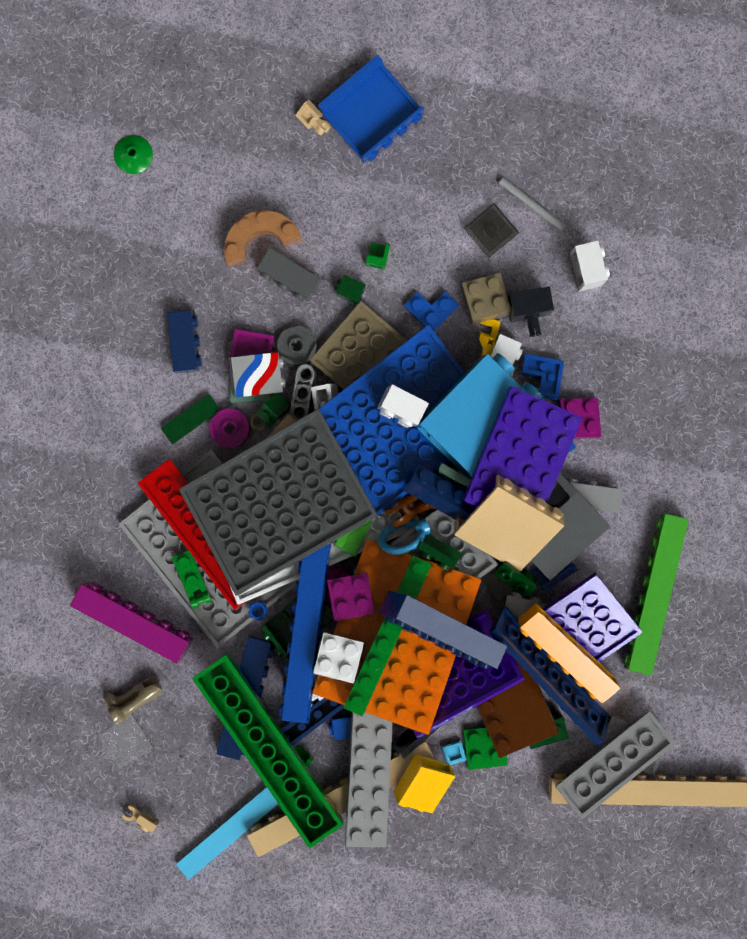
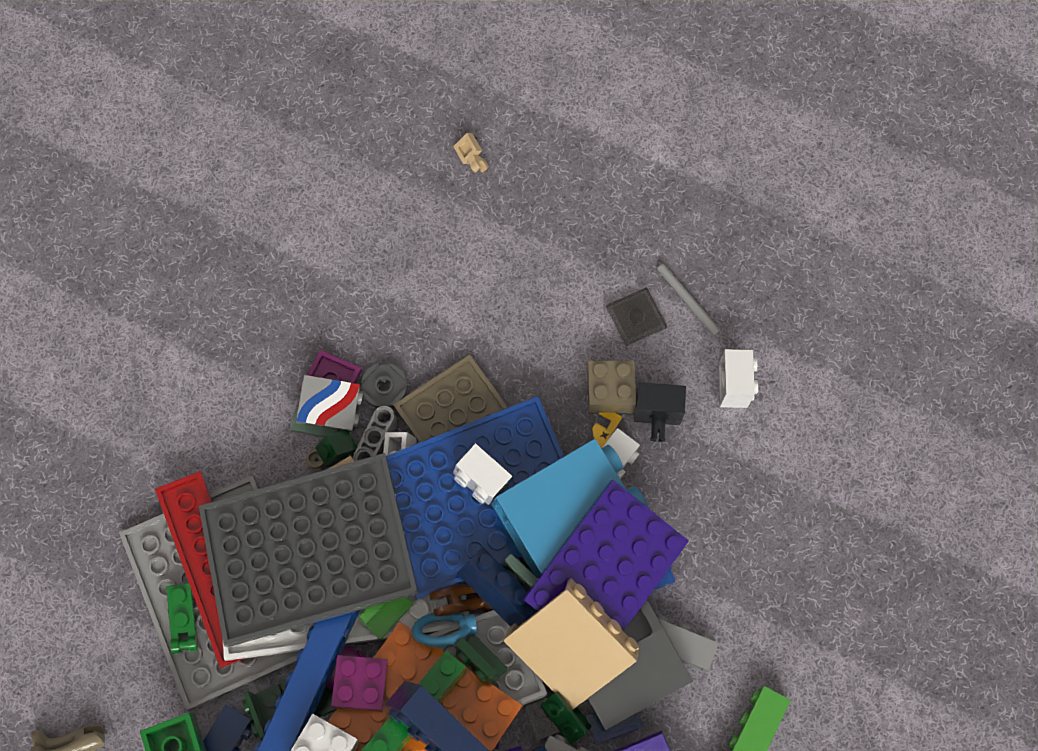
camera: 10 degrees right, 15 degrees down
(132, 622) = (95, 651): magenta brick -> none
(137, 163) = (267, 153): green dish -> none
(184, 341) = (259, 350): dark blue brick -> none
(190, 419) = (240, 437): dark green tile -> none
(223, 437) = (287, 469): magenta plate -> none
(255, 225) = (375, 246): medium nougat brick -> none
(258, 605) = (241, 676): blue plate -> none
(288, 275) = (397, 308): dark grey brick -> none
(350, 289) = (461, 339): dark green brick -> none
(370, 110) = (535, 160): blue panel -> none
(378, 256) = (502, 312): green panel -> none
(432, 314) = (548, 390): blue plate -> none
(548, 370) = (662, 483): blue plate -> none
(589, 410) = (697, 553): magenta plate -> none

